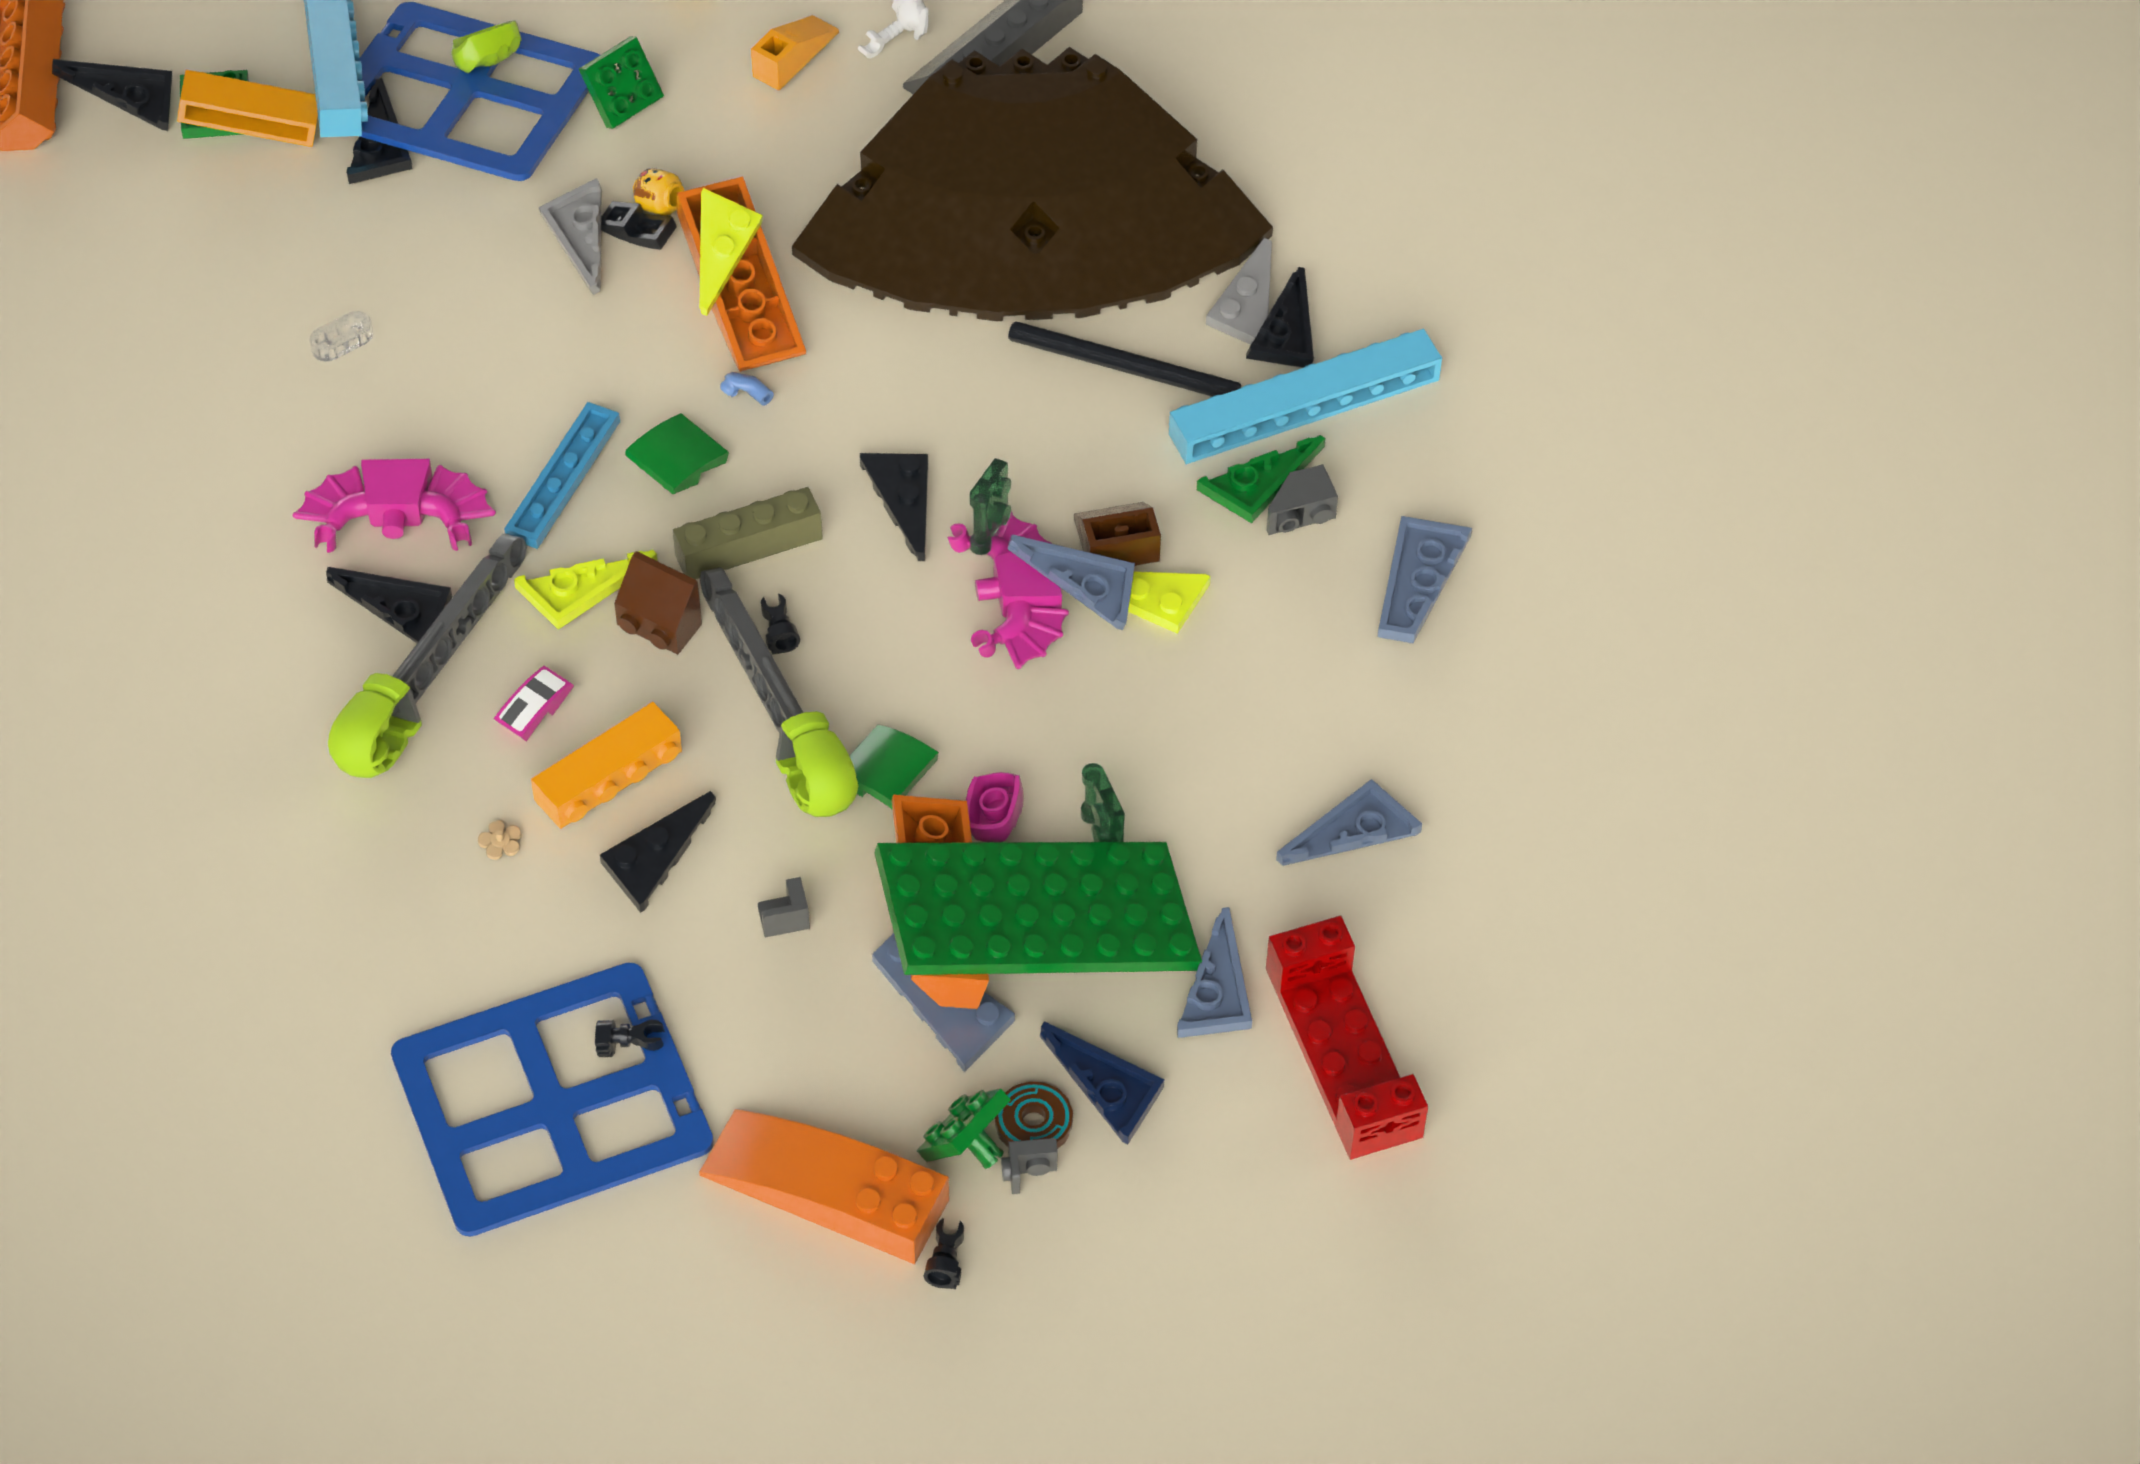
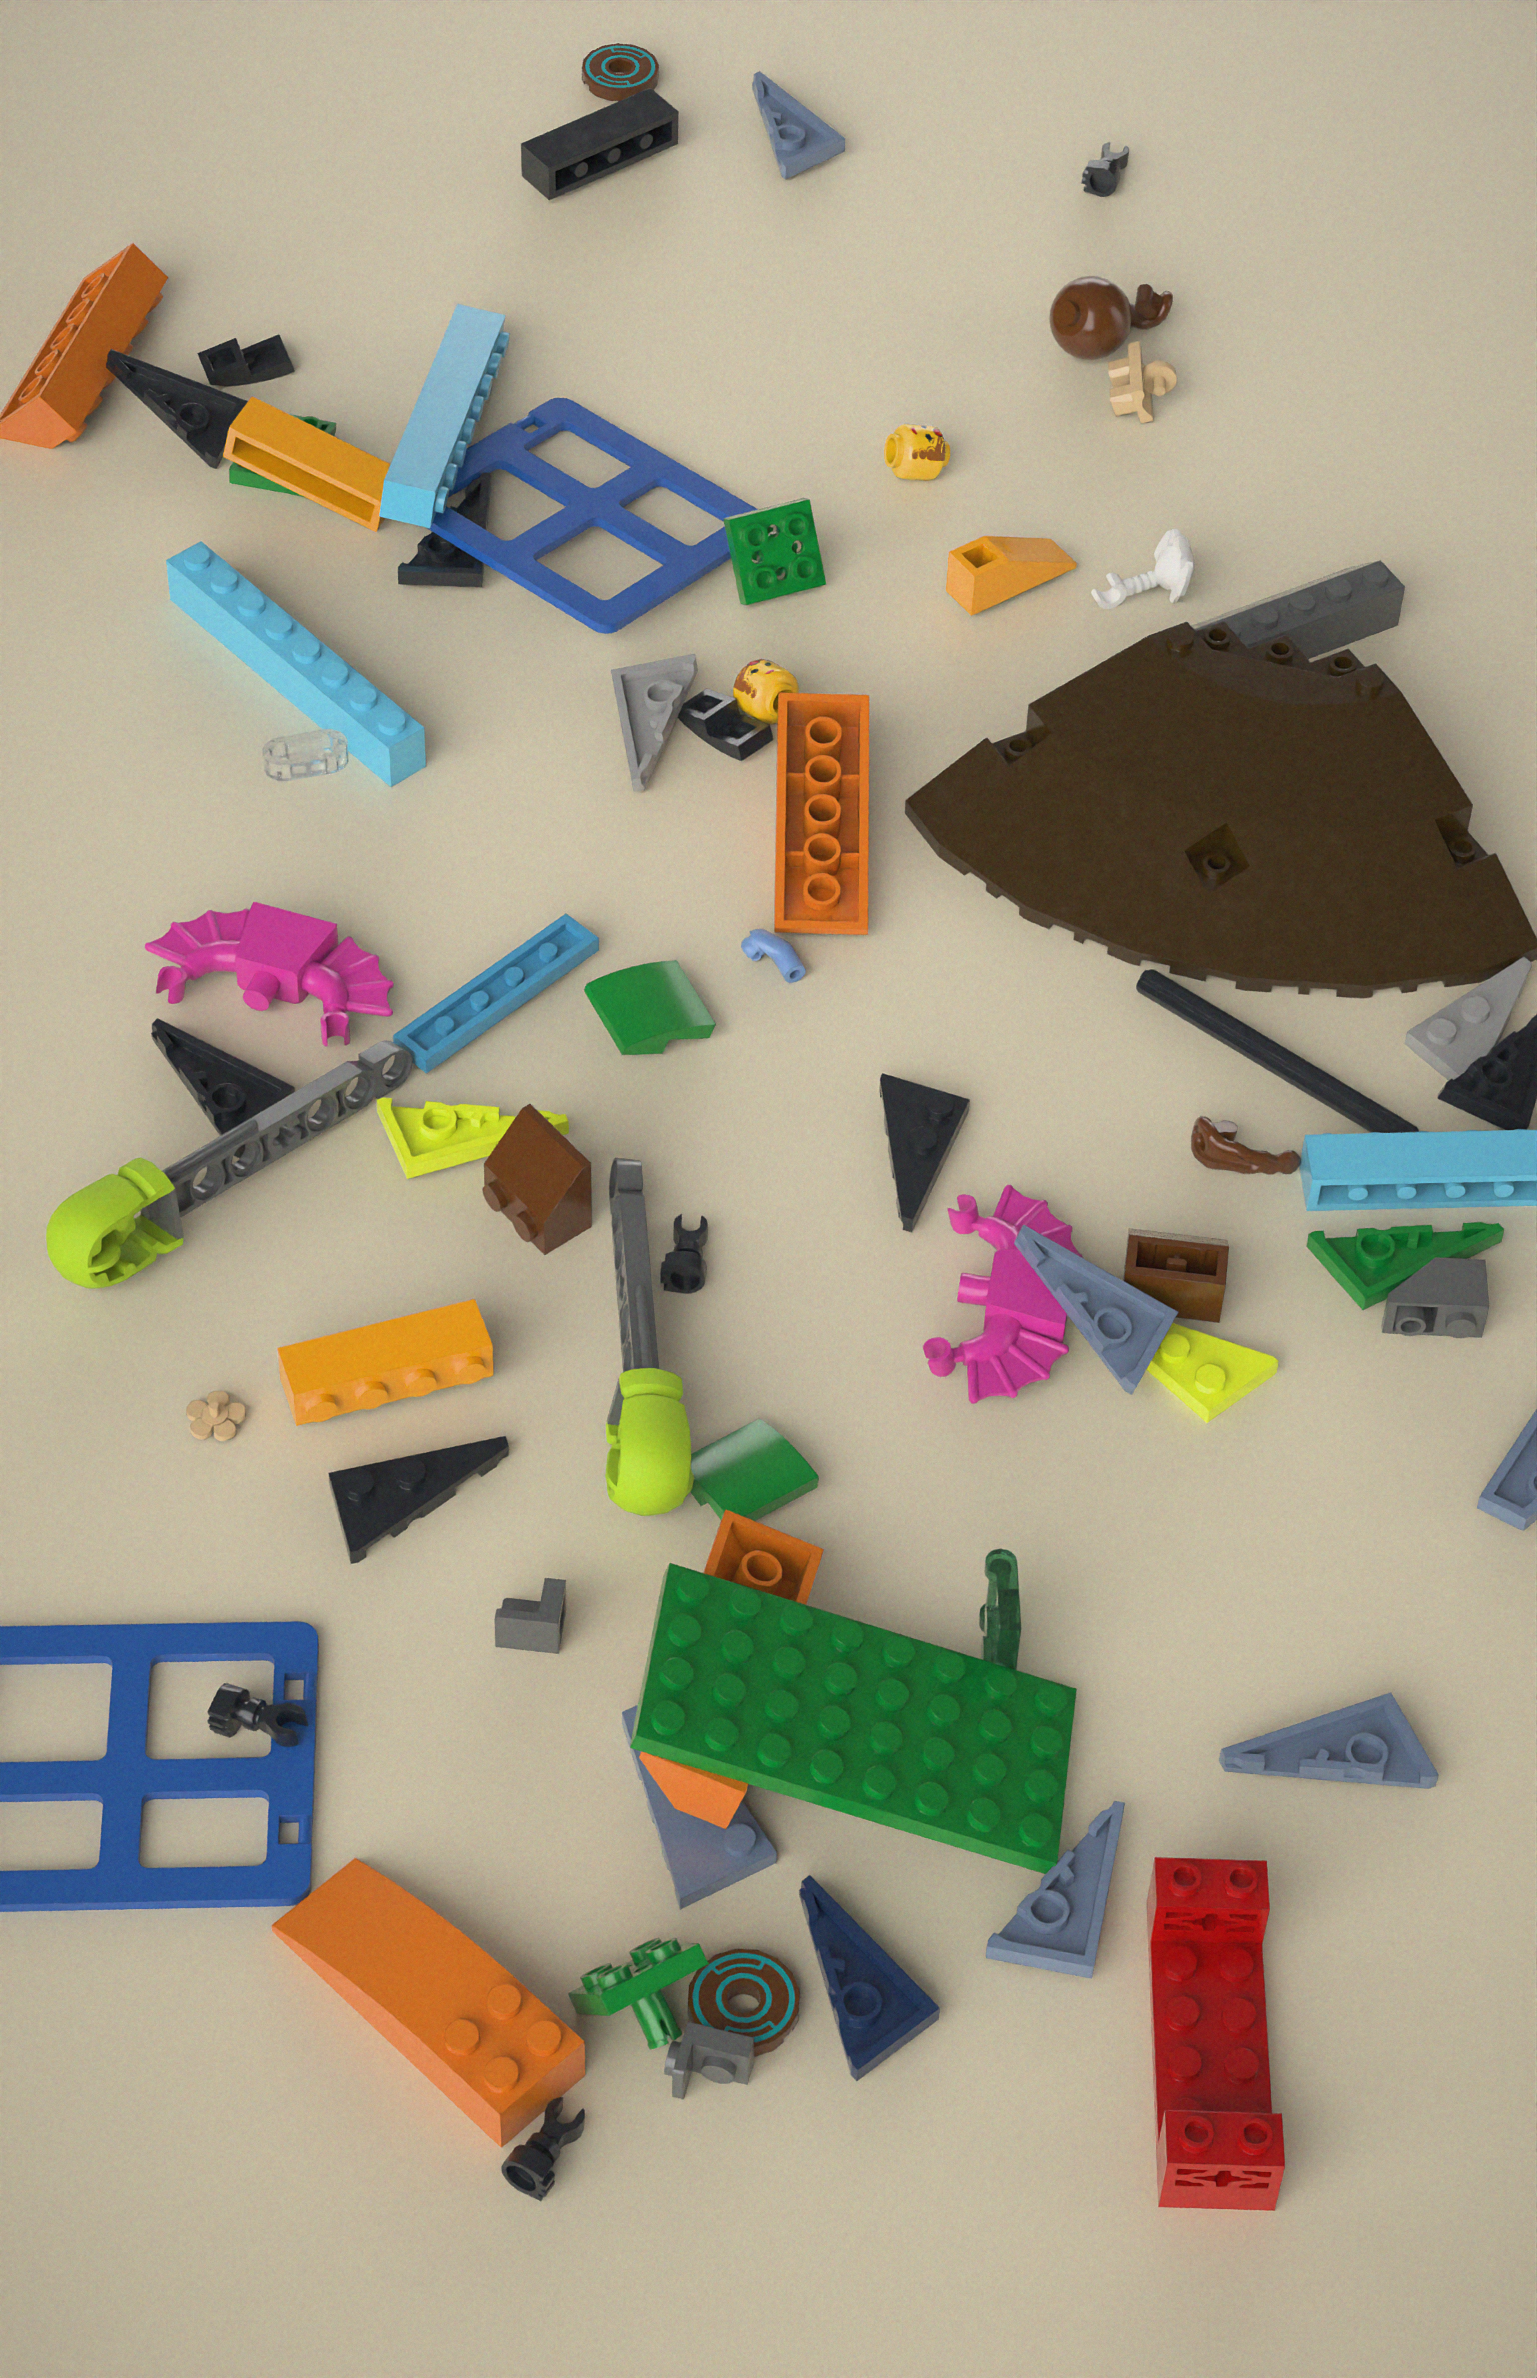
camera: 20 degrees right, 5 degrees down
(147, 43) = (257, 363): none -> black slope
(303, 267) = (296, 663): none -> medium azure brick
(486, 46) = (628, 467): lime piece -> none
(532, 700) = (326, 1258): slope -> none
(723, 241) = (815, 762): neon yellow wing -> none
(748, 533) = (695, 1129): olive brick -> none
(989, 505) = (1011, 1180): clear green plate -> none
(994, 805) = (861, 1569): dark pink piece -> none
(1110, 440) = (1215, 1149): none -> reddish brown piece

